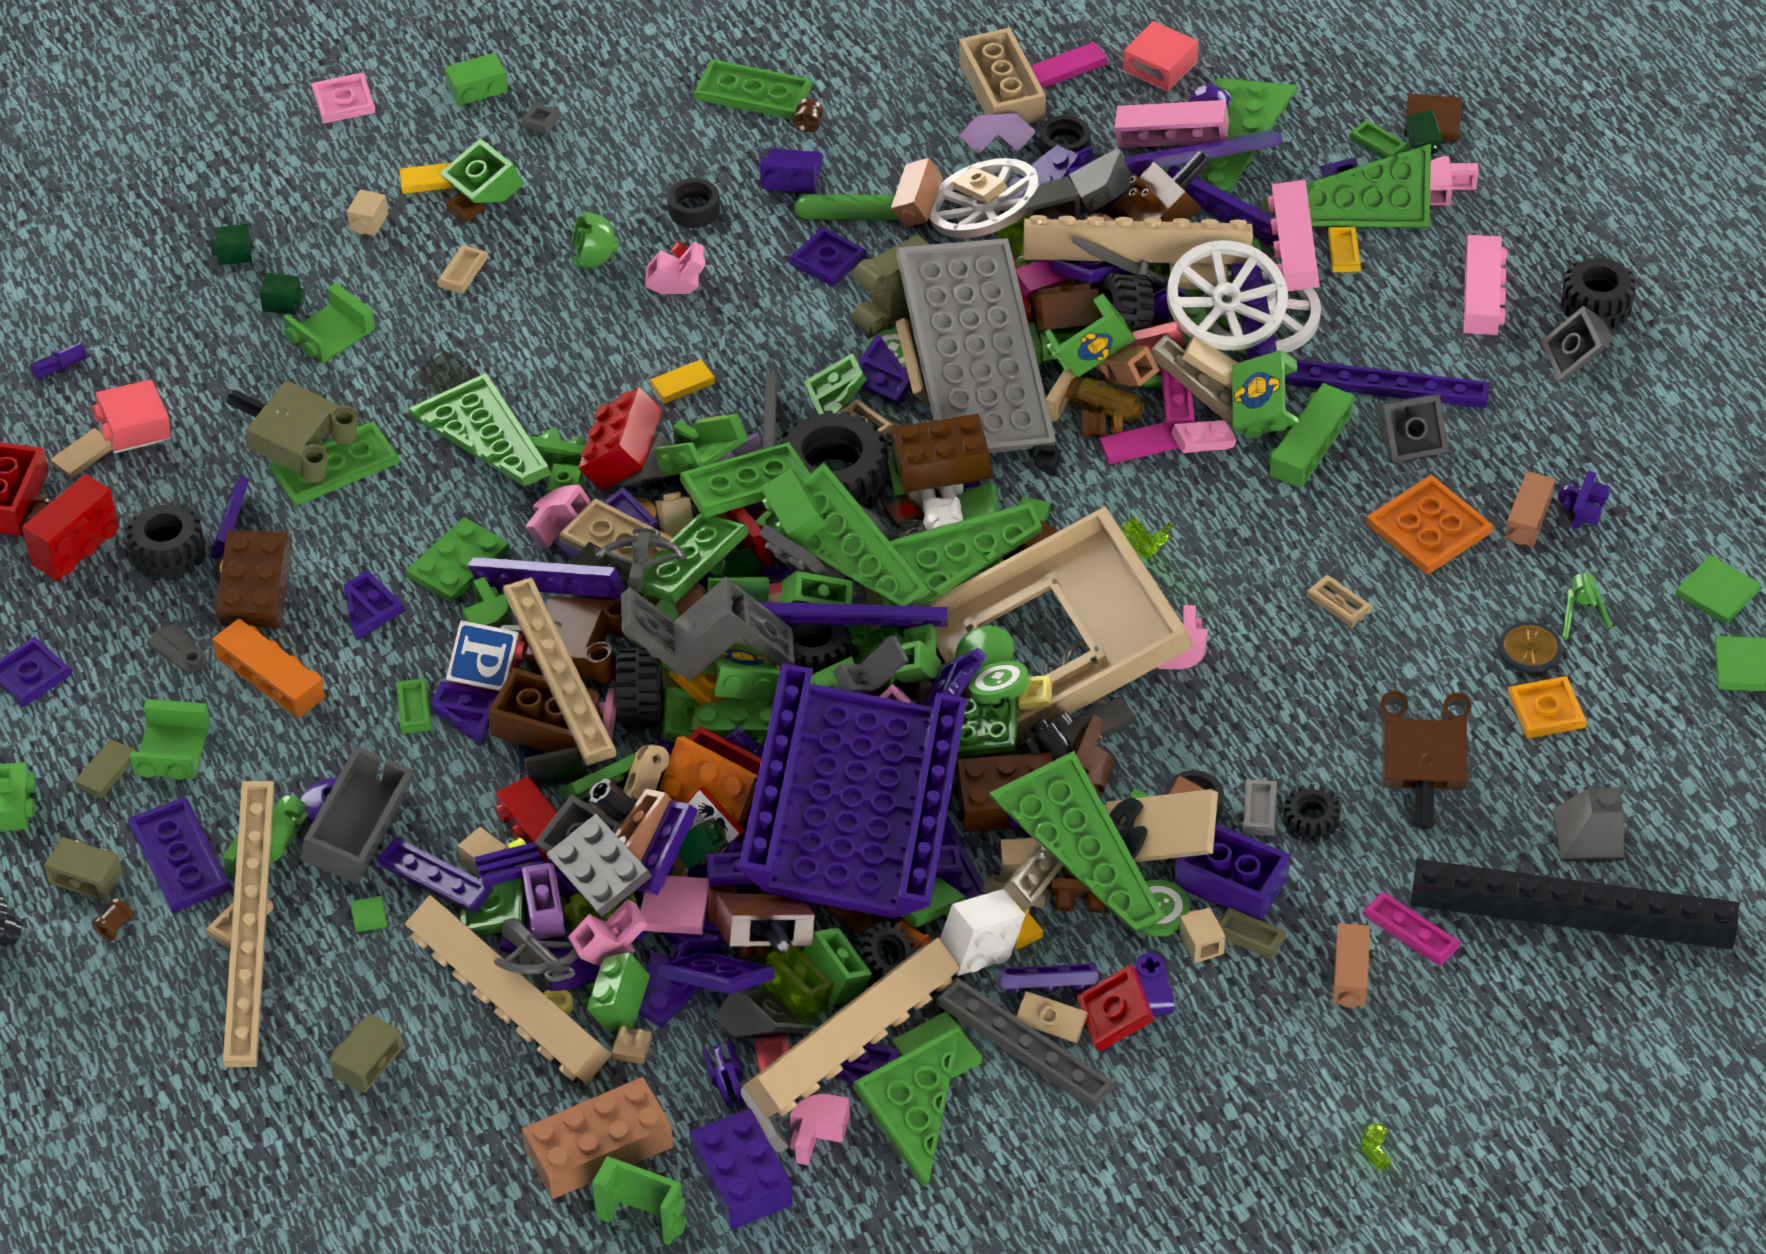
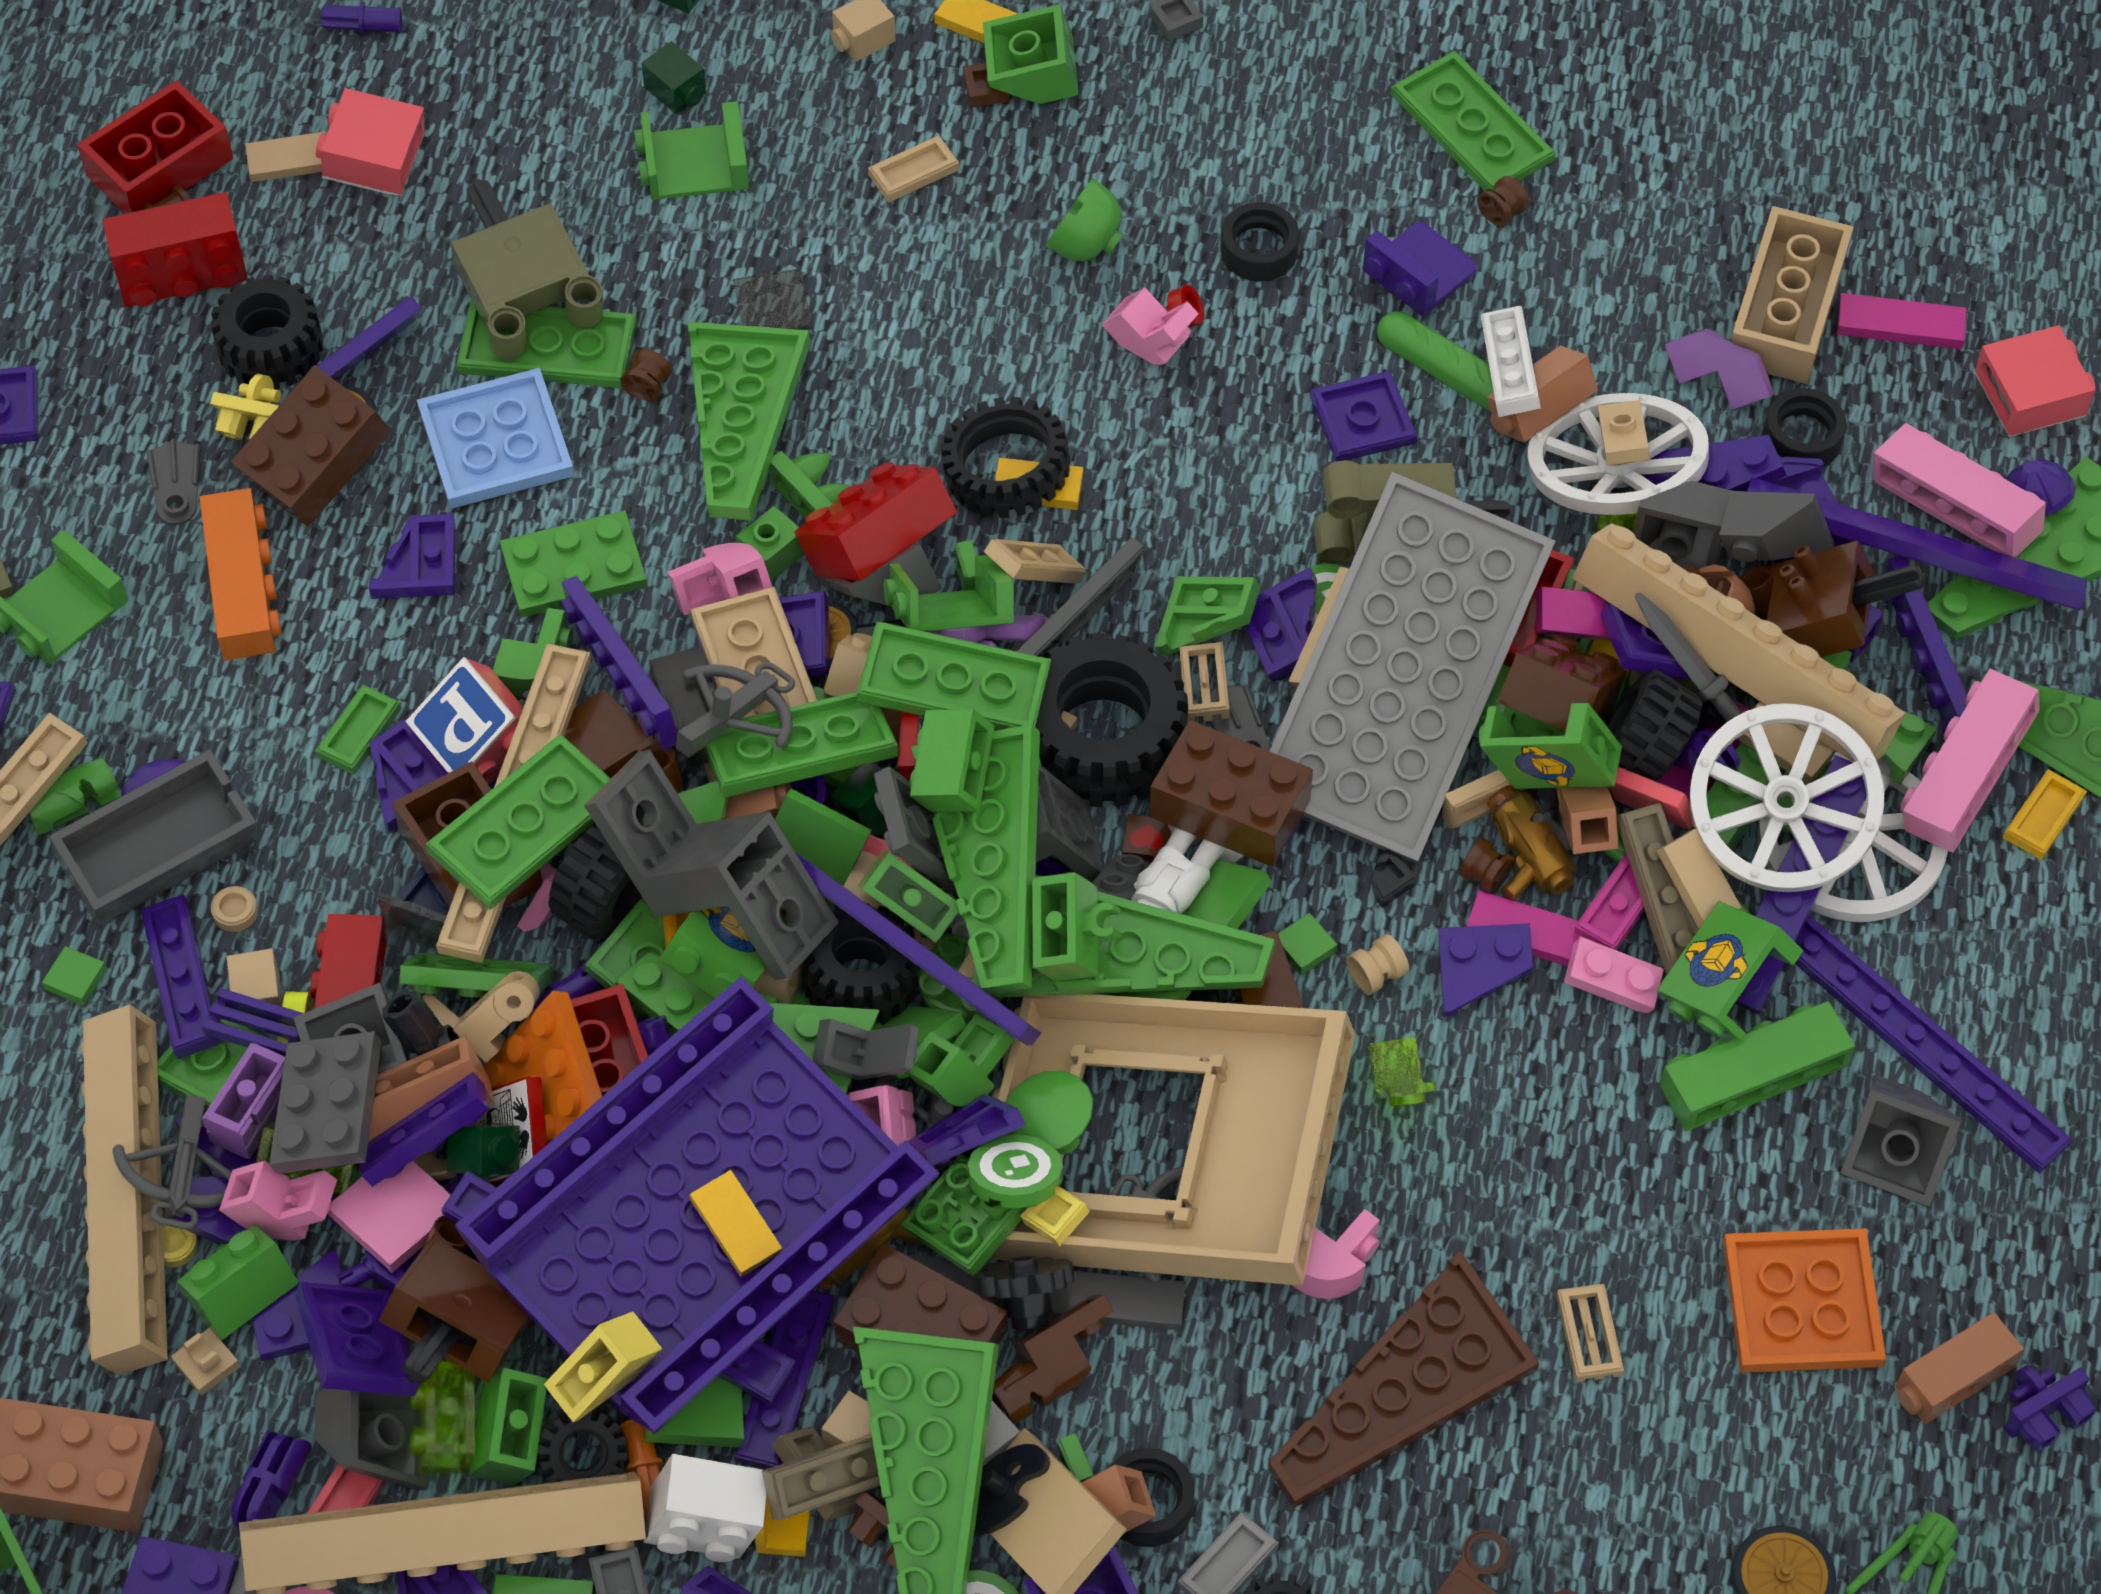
camera: 35 degrees right, 10 degrees up
(194, 581) = (237, 410): none -> light yellow hips
(352, 523) = (495, 438): none -> light blue plate
(411, 445) = (647, 374): none -> reddish brown wheel
(429, 830) = (234, 908): none -> tan tile
(579, 672) = (520, 822): none -> bright green tile
(656, 351) = (999, 421): none -> black tyre
(726, 408) = (1035, 561): none -> tan tile
(873, 892) = (602, 1365): none -> light yellow slope
(879, 787) = (735, 1223): none -> yellow tile
(888, 184) = (1510, 361): none -> white tile
(925, 550) = (1068, 926): none -> bright green brick
(1080, 498) = (1381, 962): none -> tan wheel
(1131, 468) = (1480, 961): none -> dark purple wing
(1275, 668) = (1420, 1374): none -> reddish brown wing

